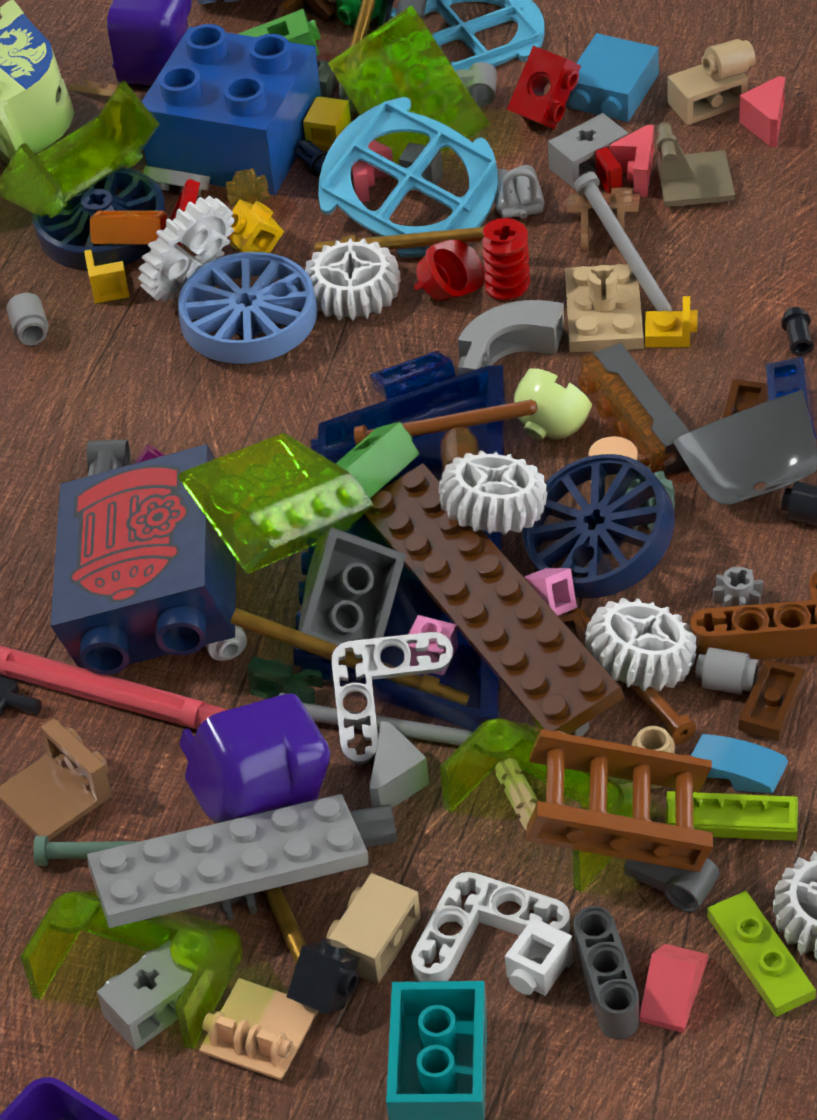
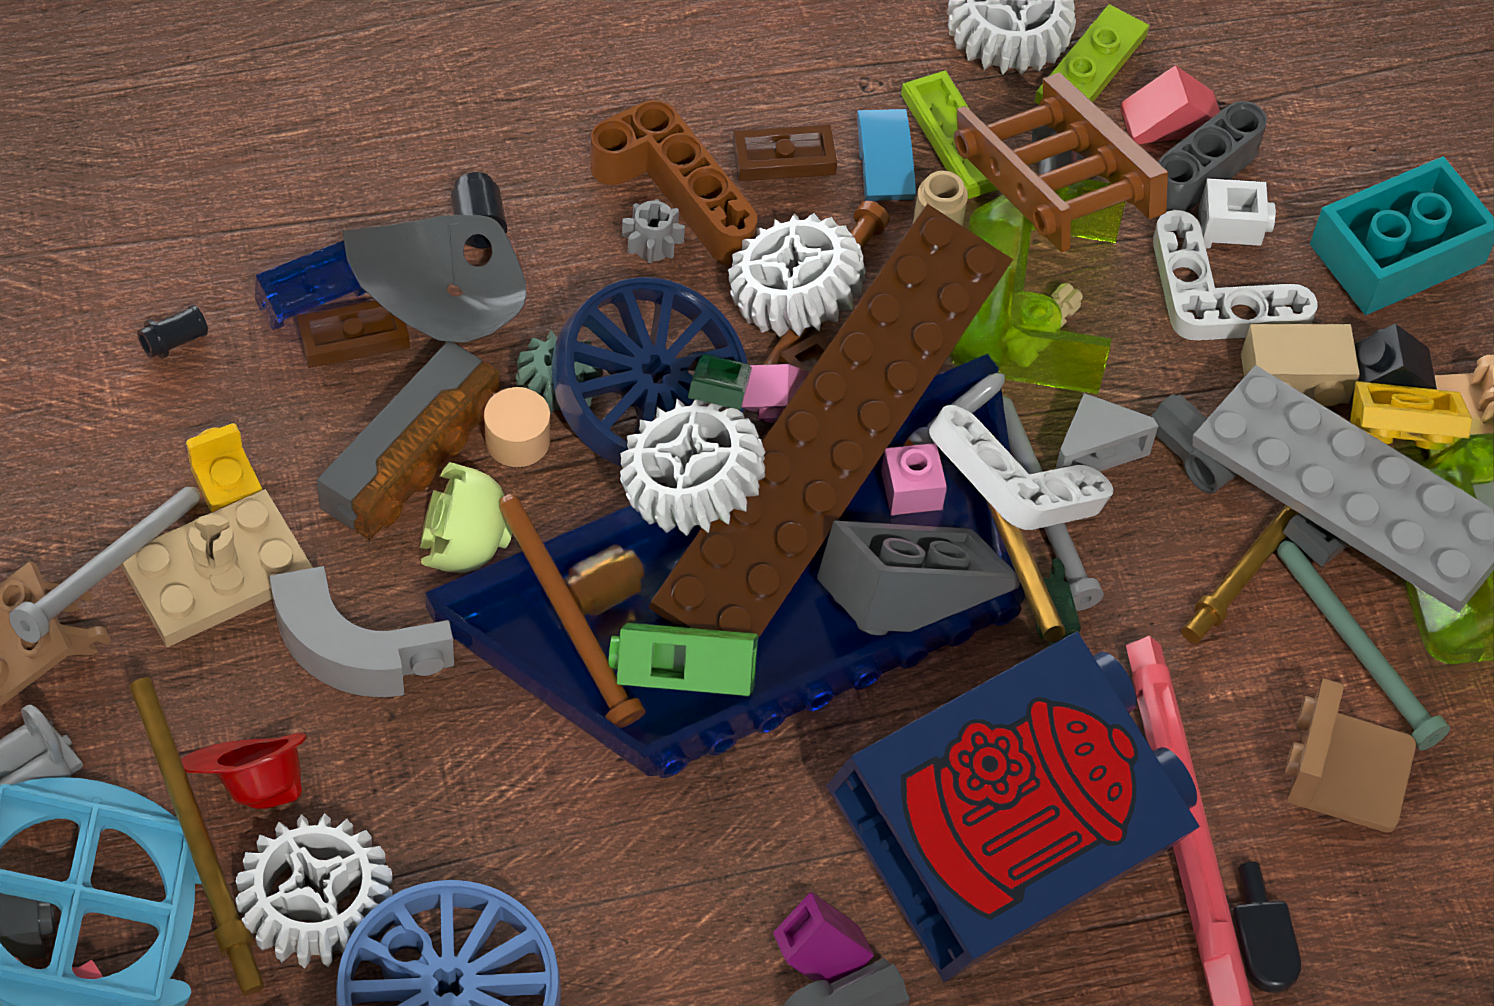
camera: 130 degrees left, 10 degrees up
(255, 759) = (1220, 520): dark purple piece -> none
(259, 928) = (1410, 413): none -> yellow plate
(274, 499) = (864, 660): clear neon green slope -> none
(412, 375) = (475, 714): clear blue bracket -> none
(462, 680) = (970, 401): none -> light grey piece
(506, 259) = (211, 682): red piece -> none
(545, 524) = (720, 381): none -> dark green tile
(727, 671) = (772, 194): light grey brick -> none

